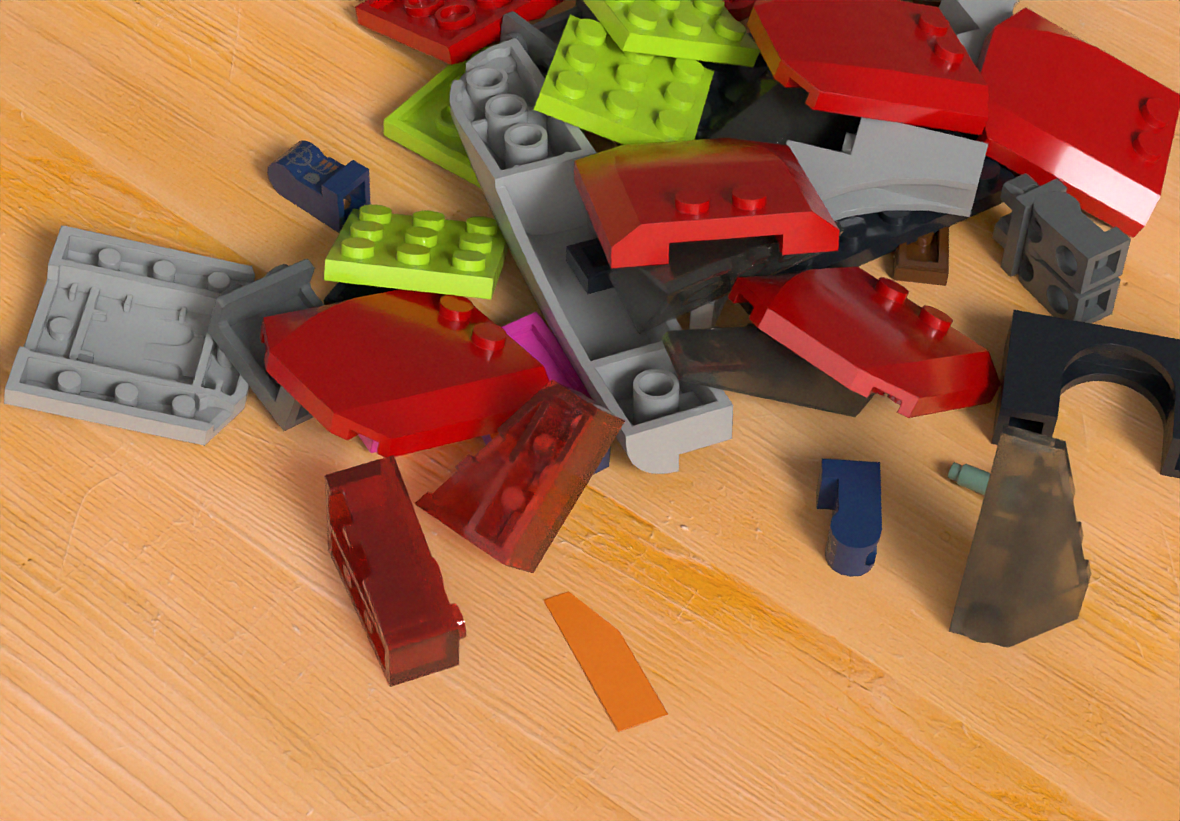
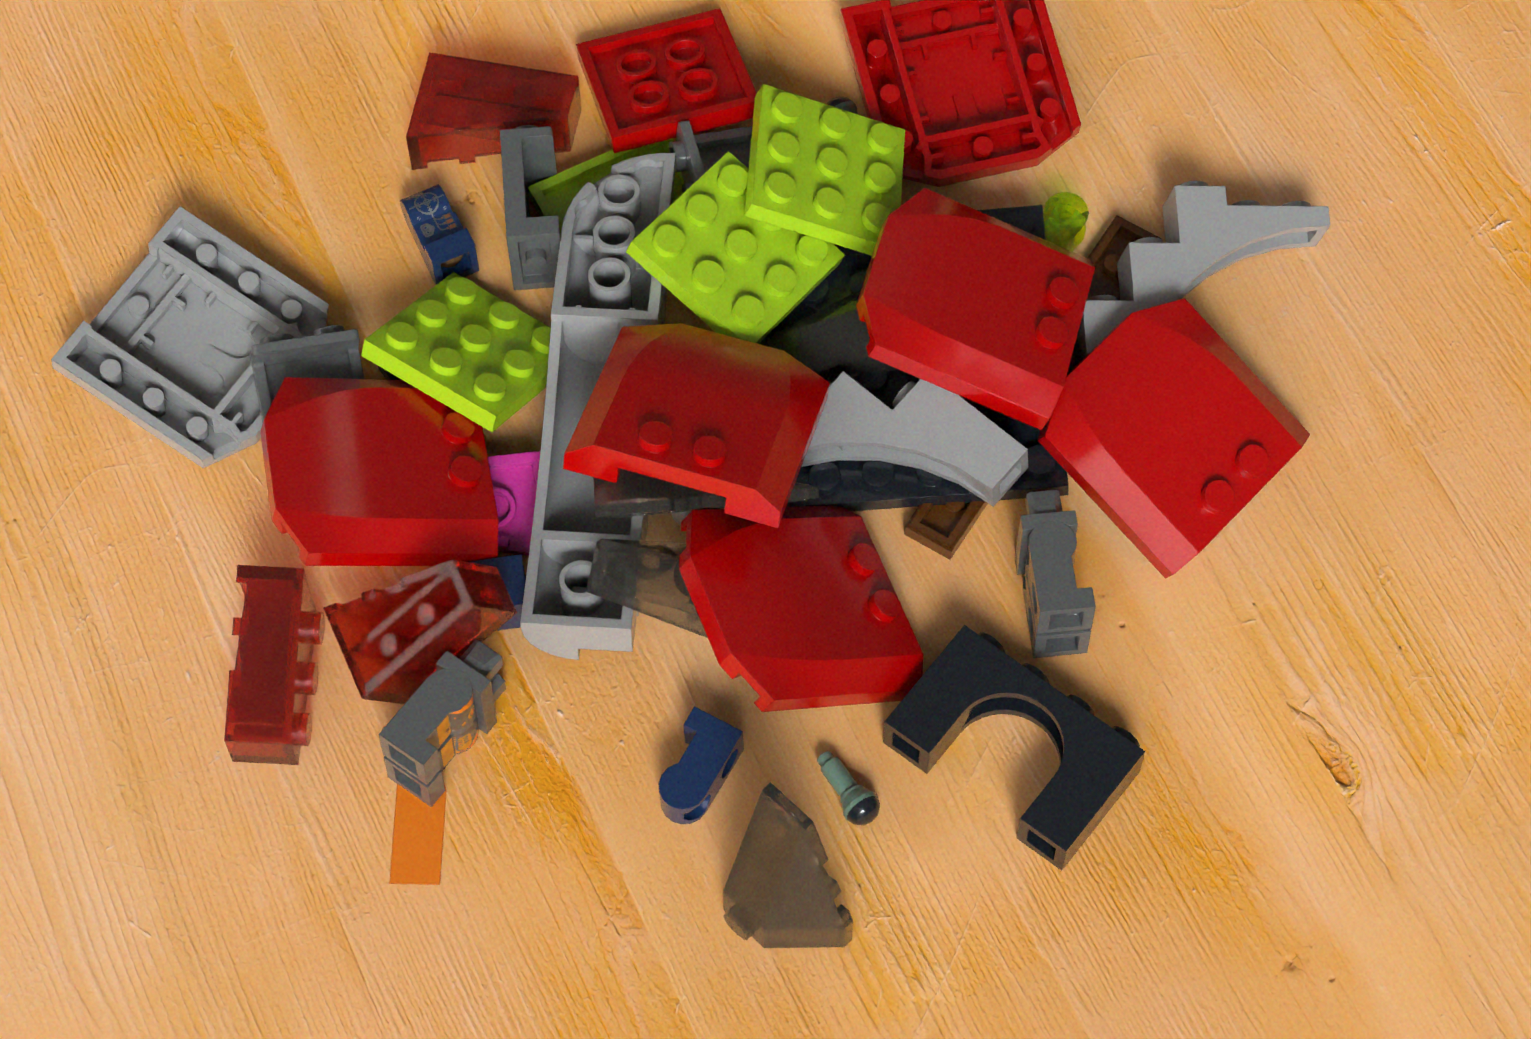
camera: 30 degrees right, 15 degrees up
(311, 72) = (471, 100): none -> clear red wedge
(410, 149) = (531, 241): none -> dark grey panel
(596, 559) = (442, 720): none -> dark grey hips

